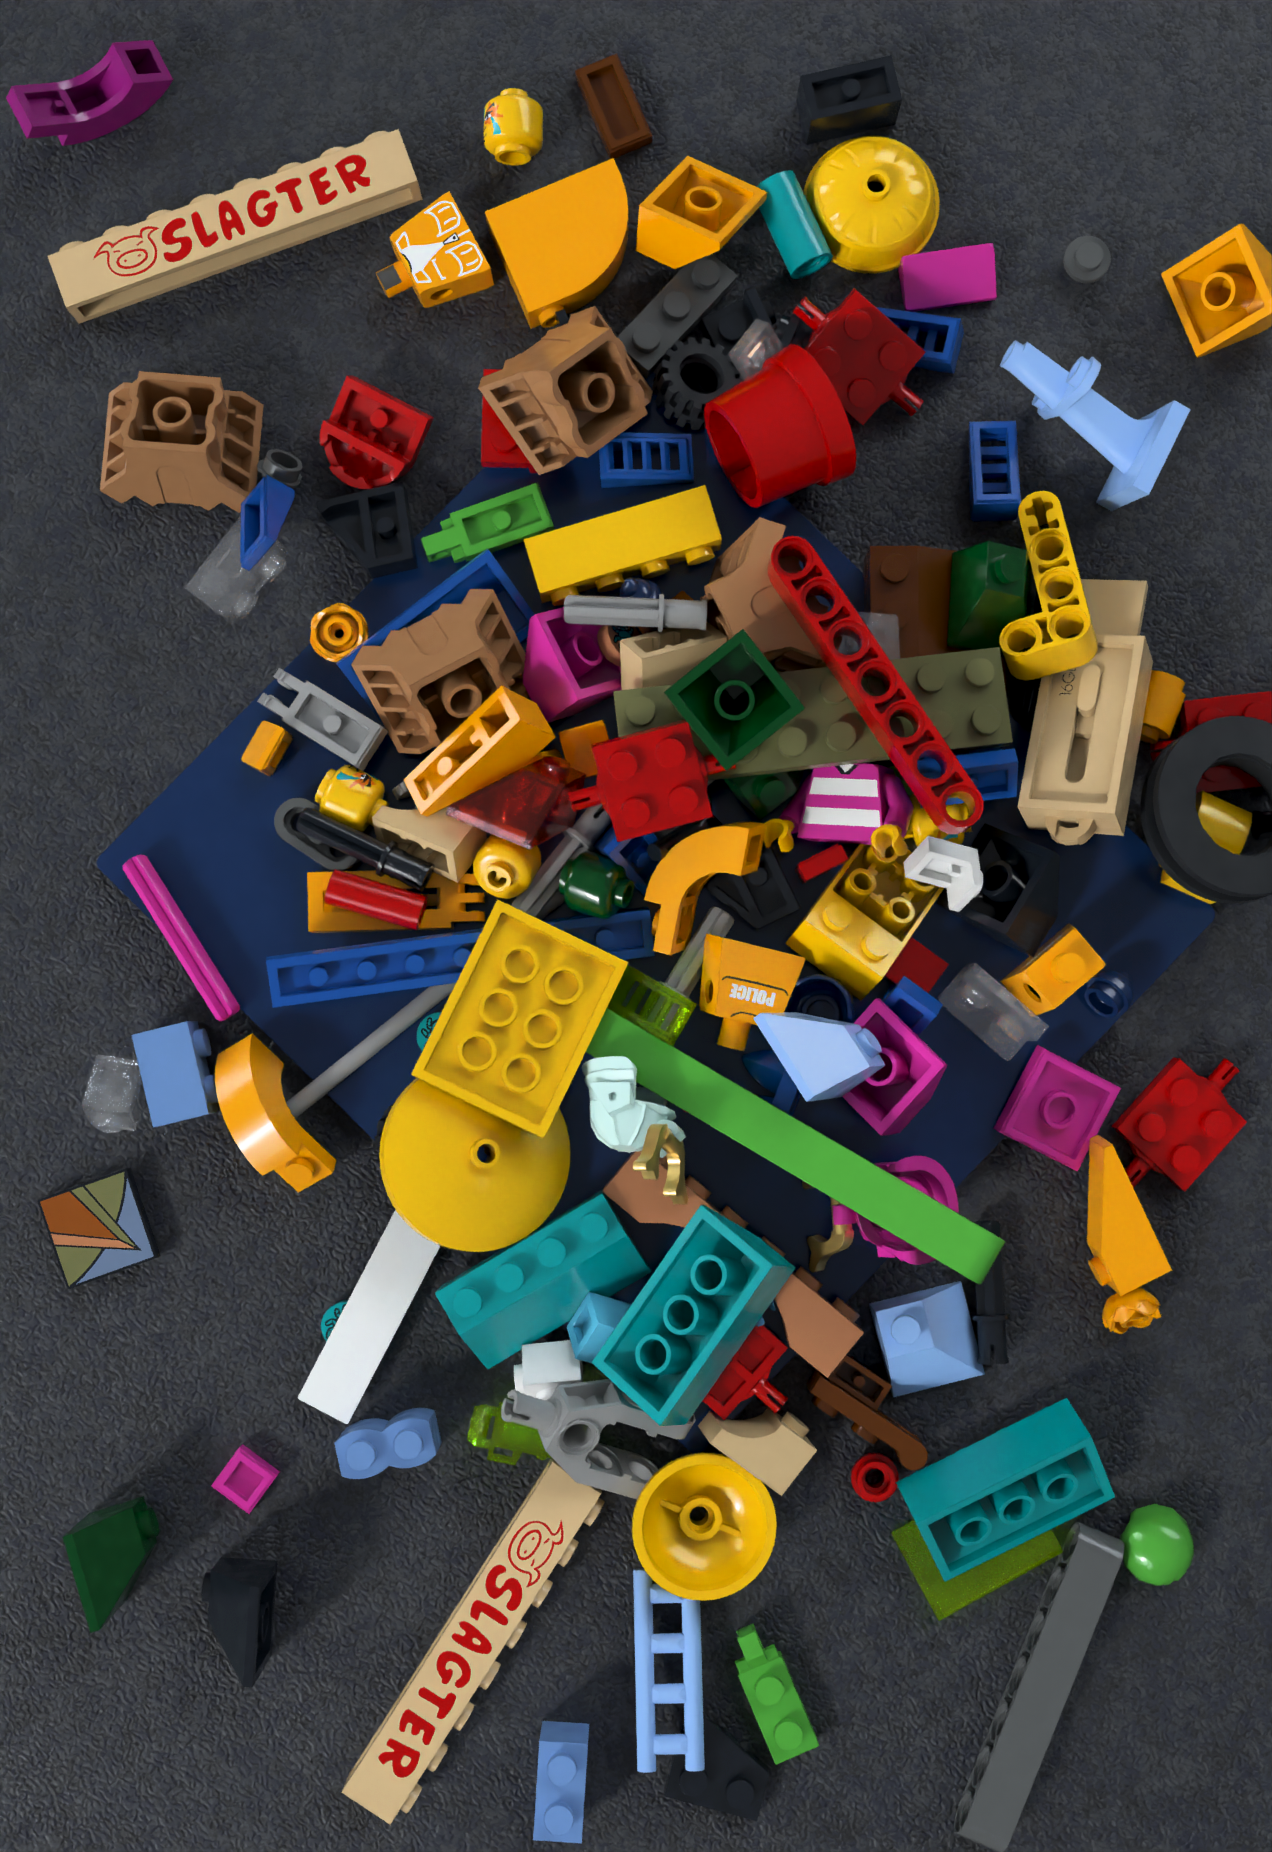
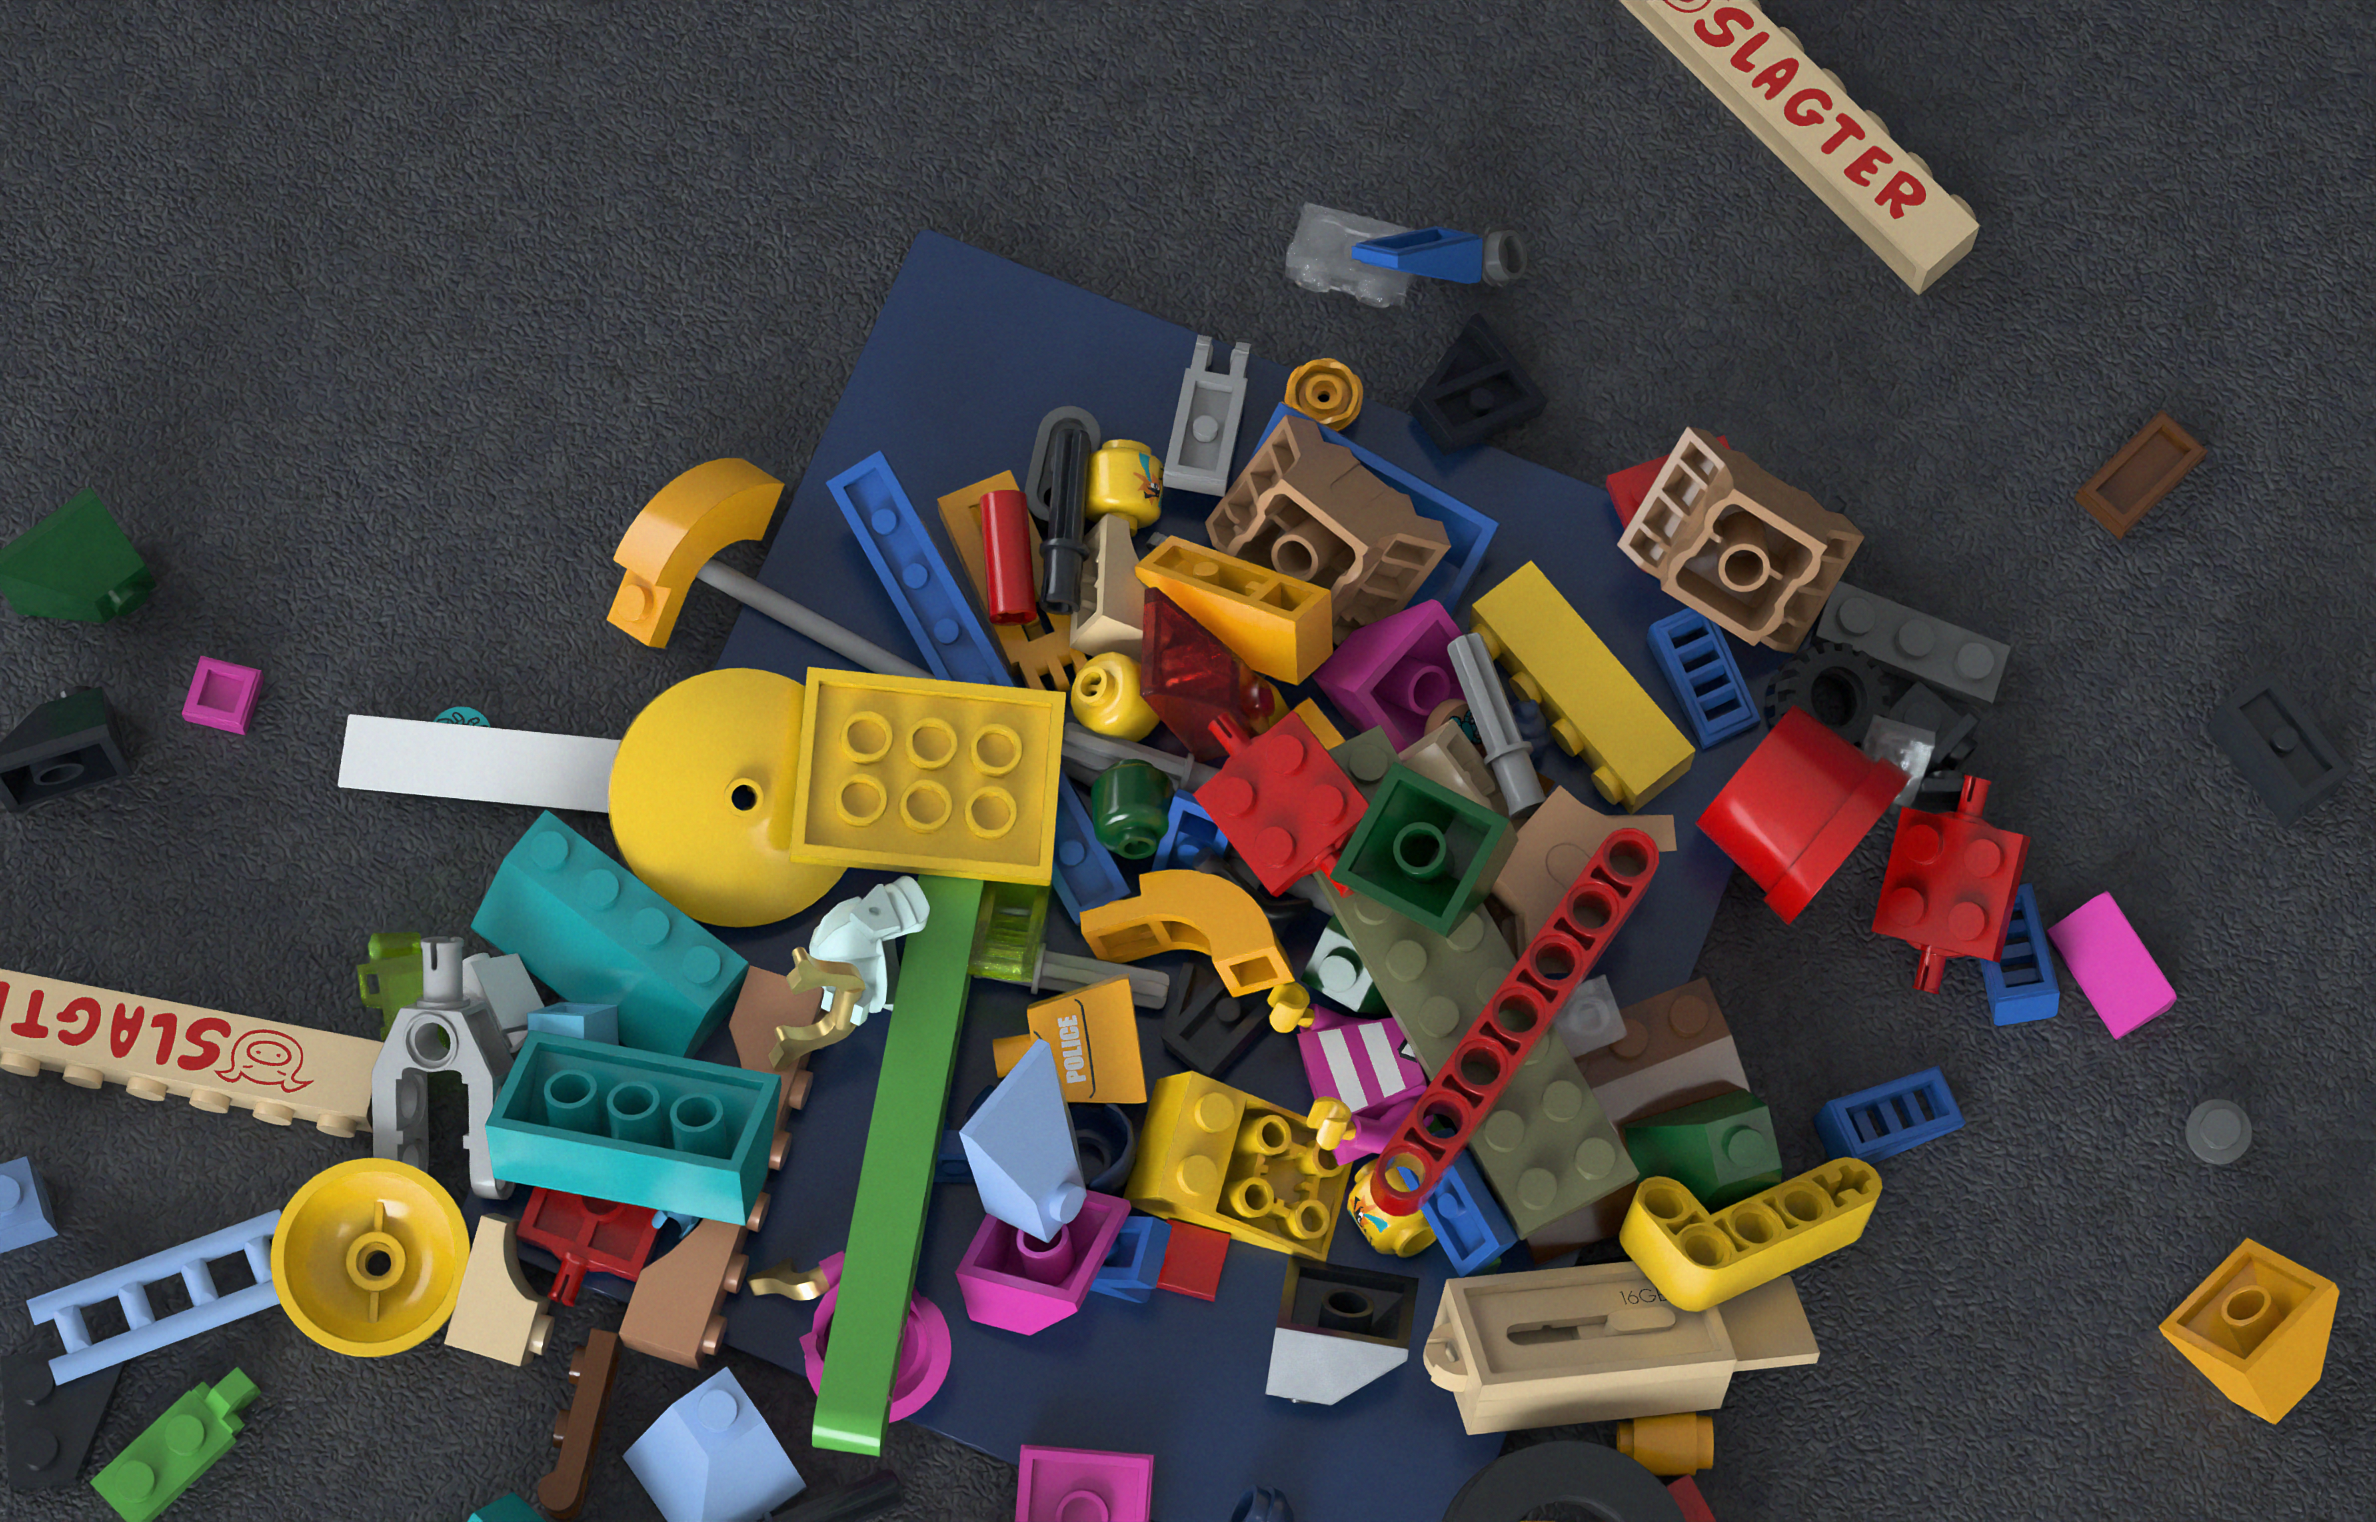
camera: 65 degrees right, 15 degrees down
(98, 1228) = (472, 405): tile -> none
(112, 1094) = (645, 356): clear bracket -> none
(176, 1072) = (699, 416): medium blue brick -> none
(181, 441) = (1483, 130): medium nougat slope -> none
(181, 937) = (869, 359): dark pink axle -> none
(267, 747) = (1145, 371): light orange slope -> none
(372, 435) = (1590, 345): red slope -> none
(377, 1443) = (333, 841): medium blue brick -> none
(436, 256) = (1848, 334): light orange torso -> none
(490, 525) = (1536, 522): bright green hinge -> none
(513, 127) = (2052, 362): yellow head -> none
(563, 241) = (1937, 477): light orange brick -> none
(694, 213) = (2042, 611): light orange slope -> none
(793, 225) = (2087, 743): teal pin -> none
(821, 863) = (1276, 1082): red tile -> none
(860, 1381) = (629, 1394): reddish brown piece -> none
(867, 227) = (2158, 870): yellow hat -> none
(881, 1490) = (502, 1450): red plate -> none
(948, 867) = (1337, 1234): white bracket -> none
(991, 1011) = (1172, 1370): clear bracket -> none
(1054, 971) = (1264, 1430): light orange torso -> none
(1130, 444) = (1987, 1251): light blue piece -> none

